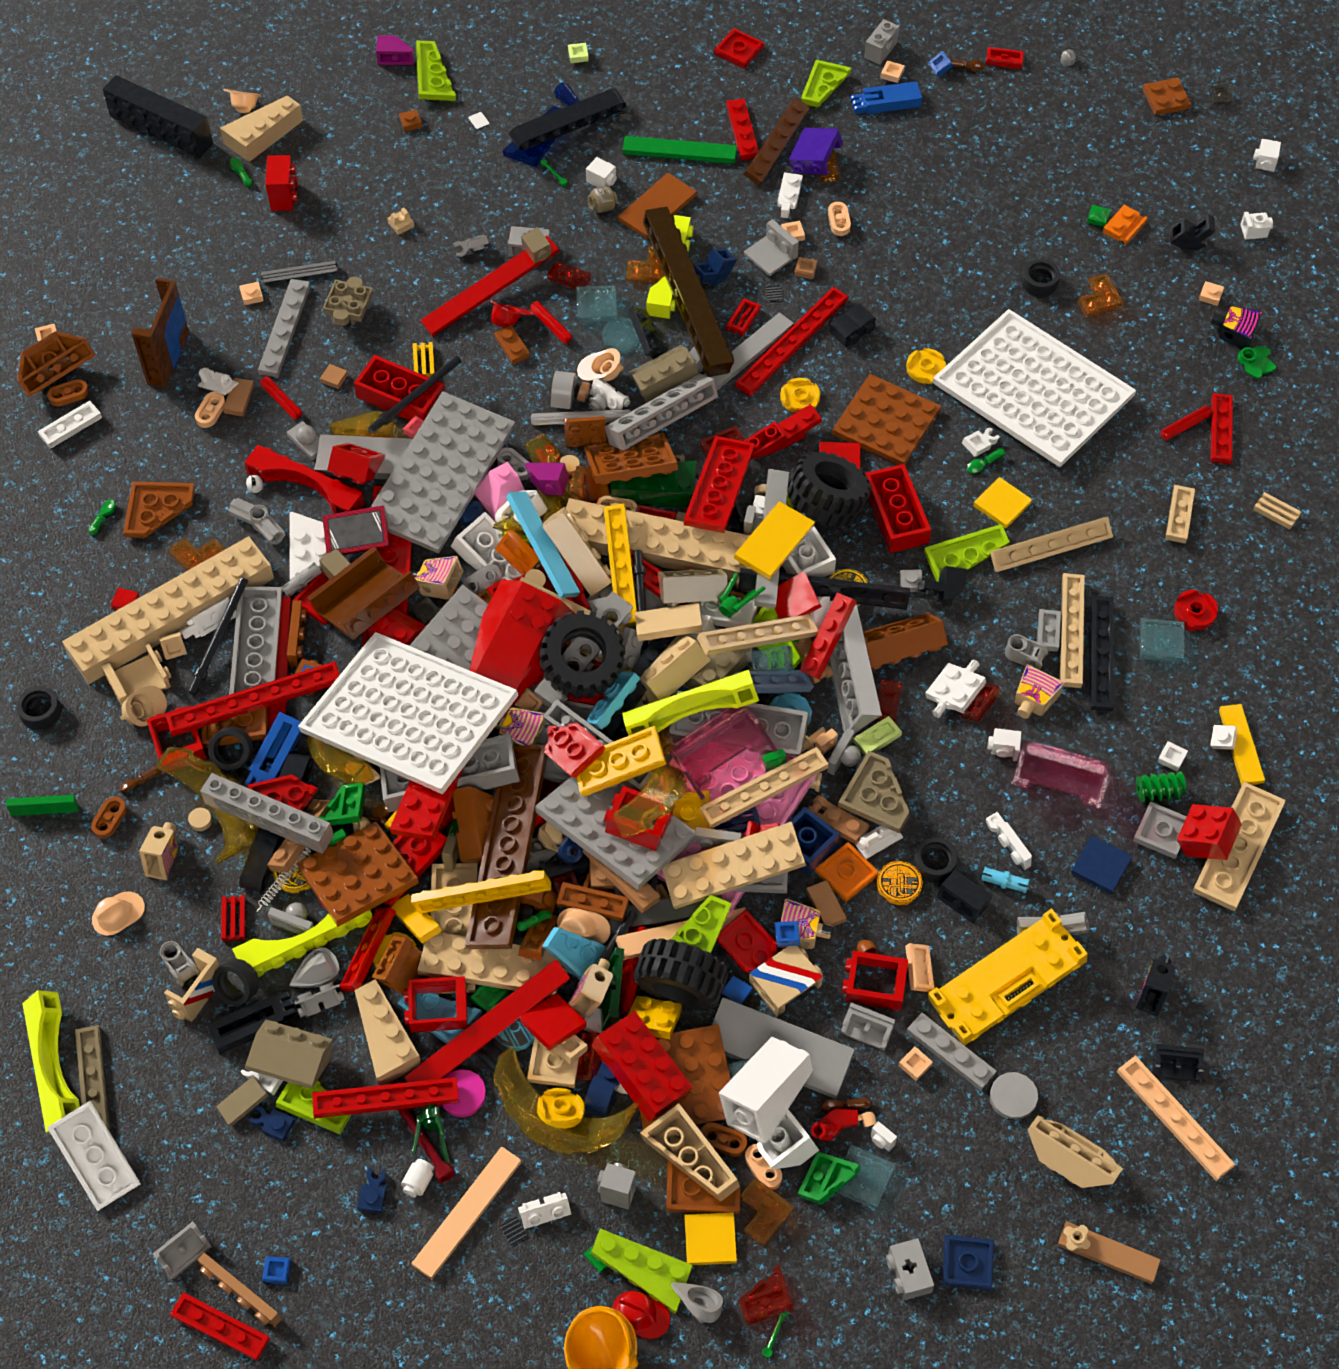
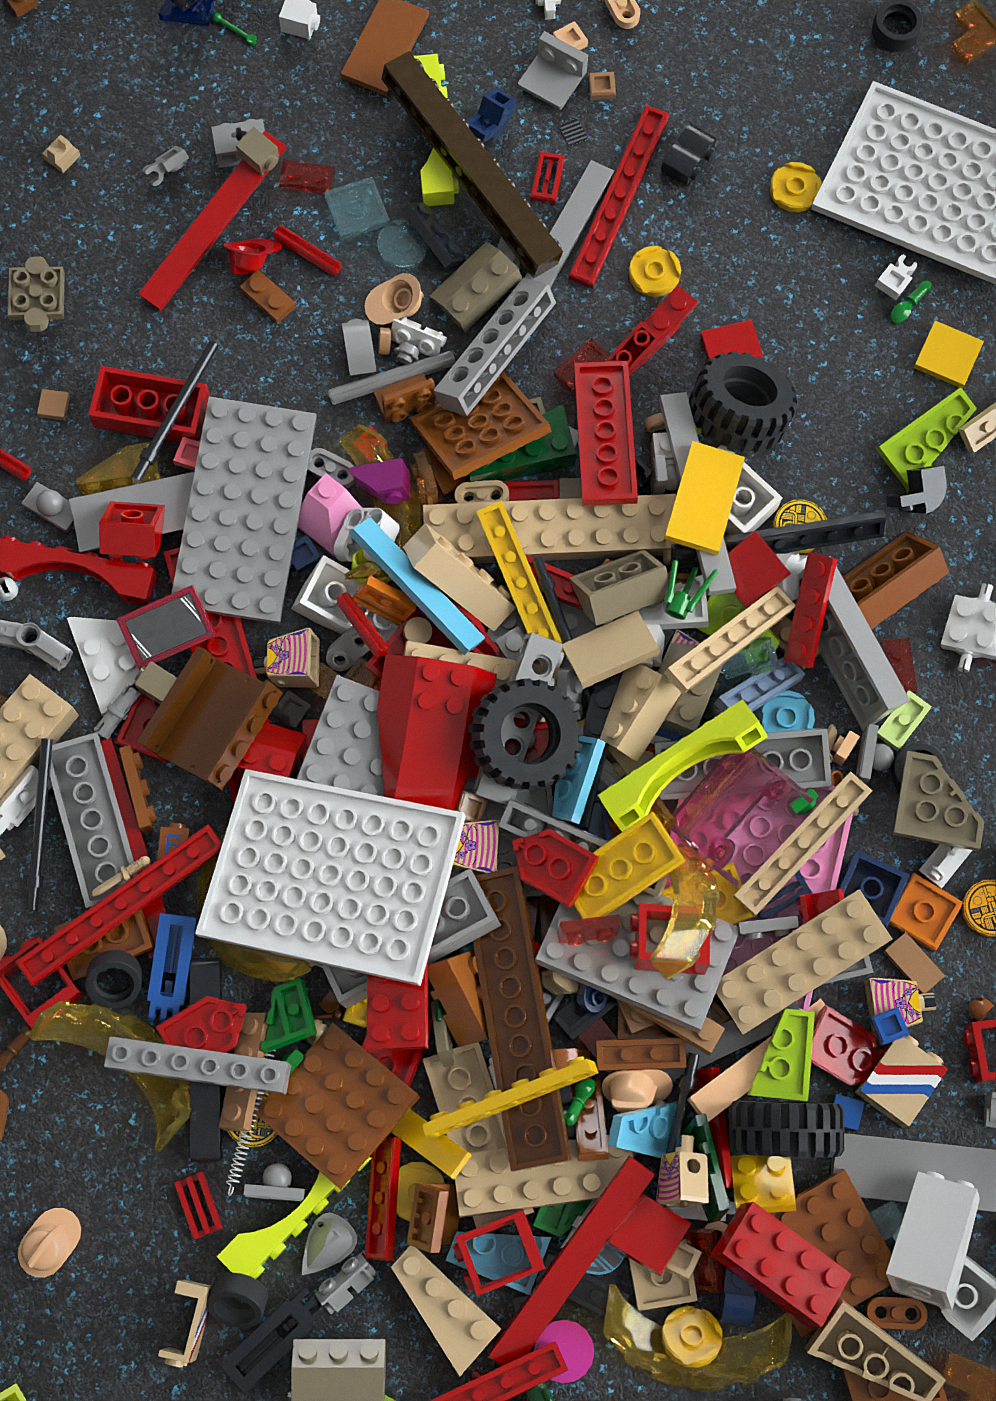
camera: 20 degrees left, 15 degrees up
(159, 851) = (74, 1146): tan torso -> none
(180, 966) = (154, 1294): light grey piece -> none
(200, 819) = (107, 1083): tan tile -> none
(266, 679) = (125, 873): none -> tan piece
(423, 348) = (155, 331): yellow tile -> none
(494, 561) = (362, 625): none -> red axle
(570, 463) = (401, 448): tan tile -> none
(580, 794) = (600, 928): none -> clear red plate
(602, 199) = (313, 55): dark tan head -> none
(645, 271) = (403, 144): clear orange plate -> none
(760, 1167) = (950, 1335): light nougat plate -> none
(840, 820) = (891, 848): medium nougat plate -> none
(886, 420) = (771, 277): dark orange plate -> none
(897, 509) = (831, 402): red brick -> none
(910, 579) = (872, 493): light grey plate -> none

